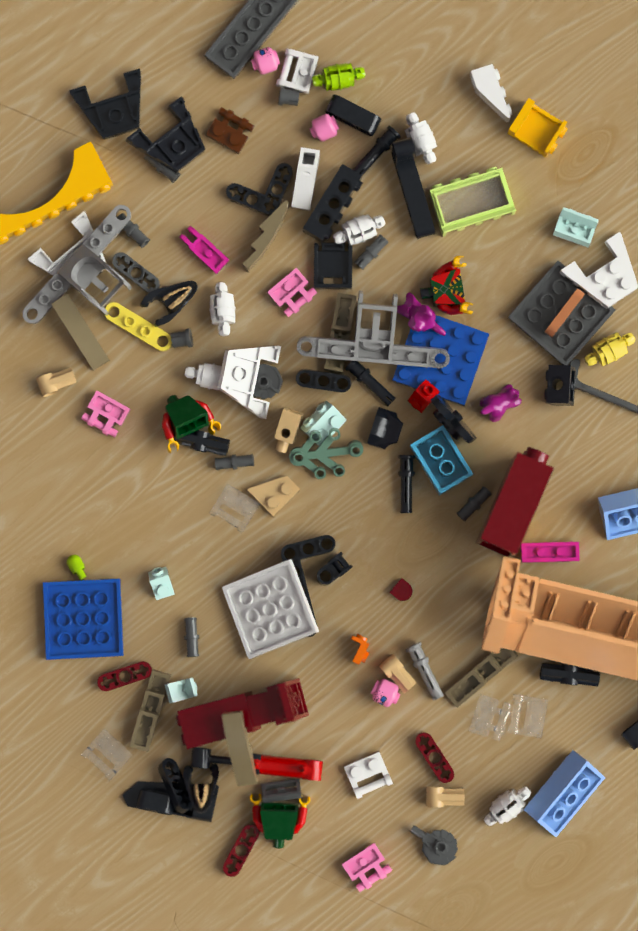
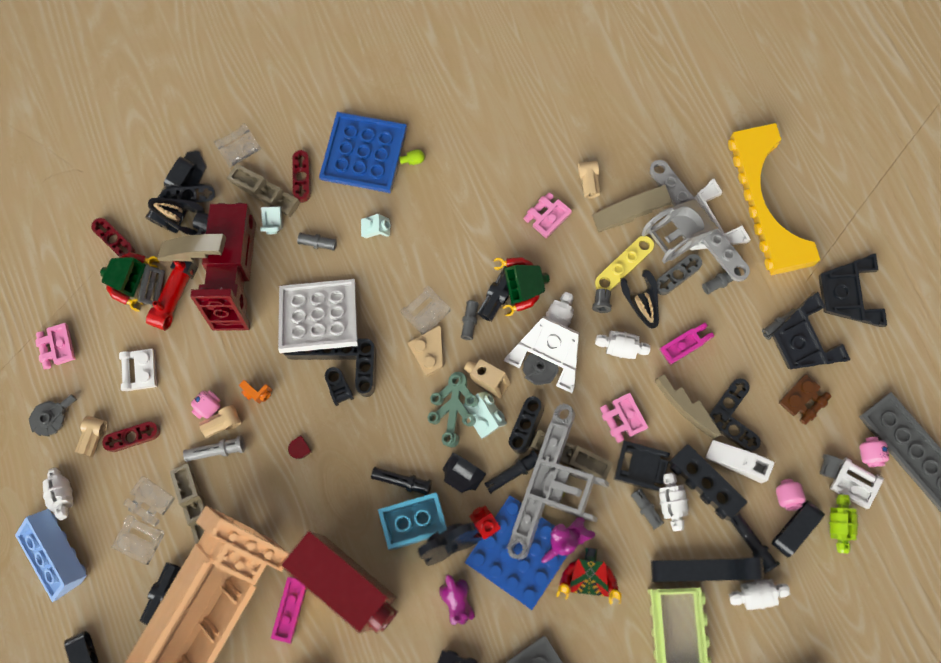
camera: 110 degrees right, 10 degrees down
(474, 503) = (361, 544): dark grey pin -> none

